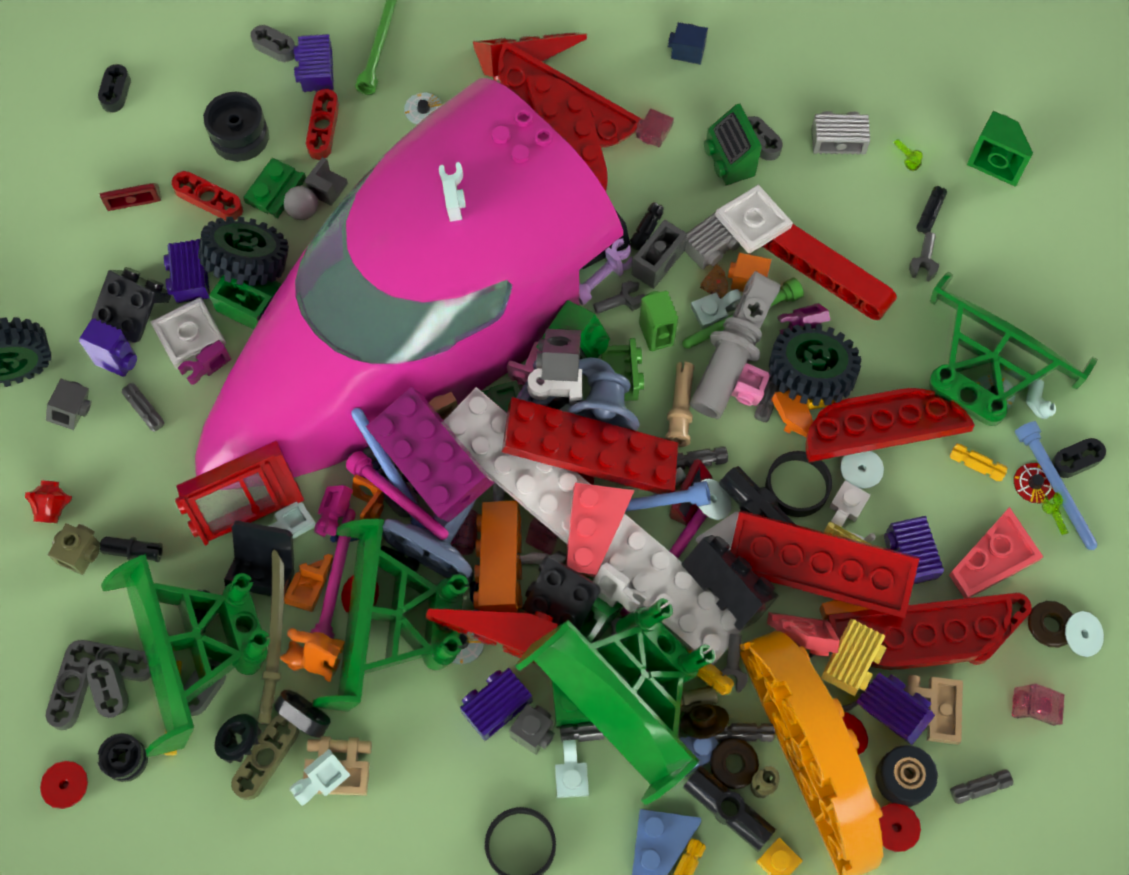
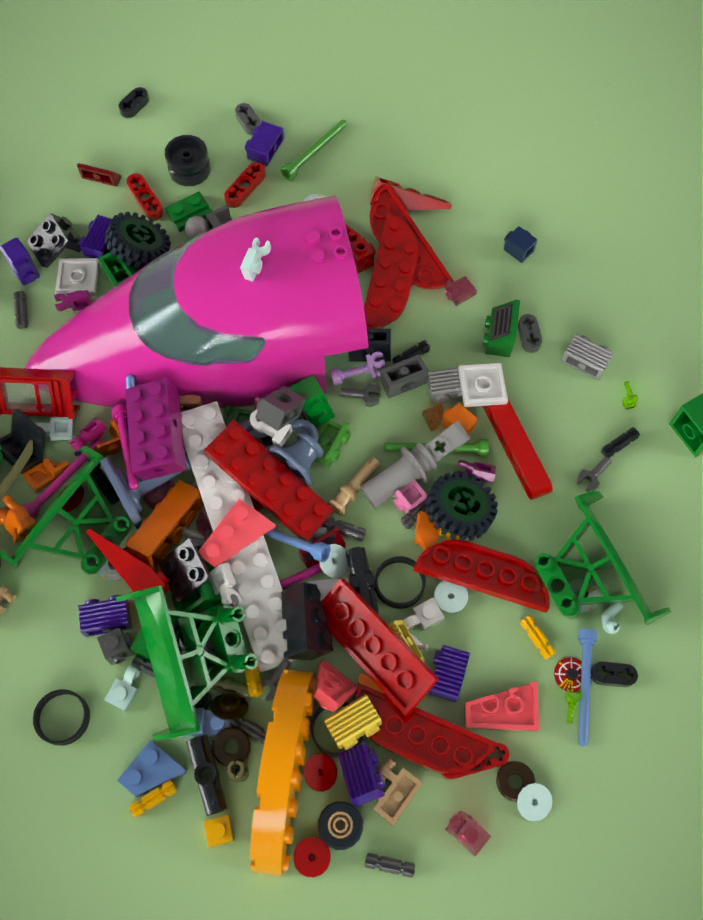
camera: 30 degrees right, 0 degrees up
(658, 320) = (372, 420): bright green brick -> none
(713, 309) = (419, 432): light aqua plate -> none

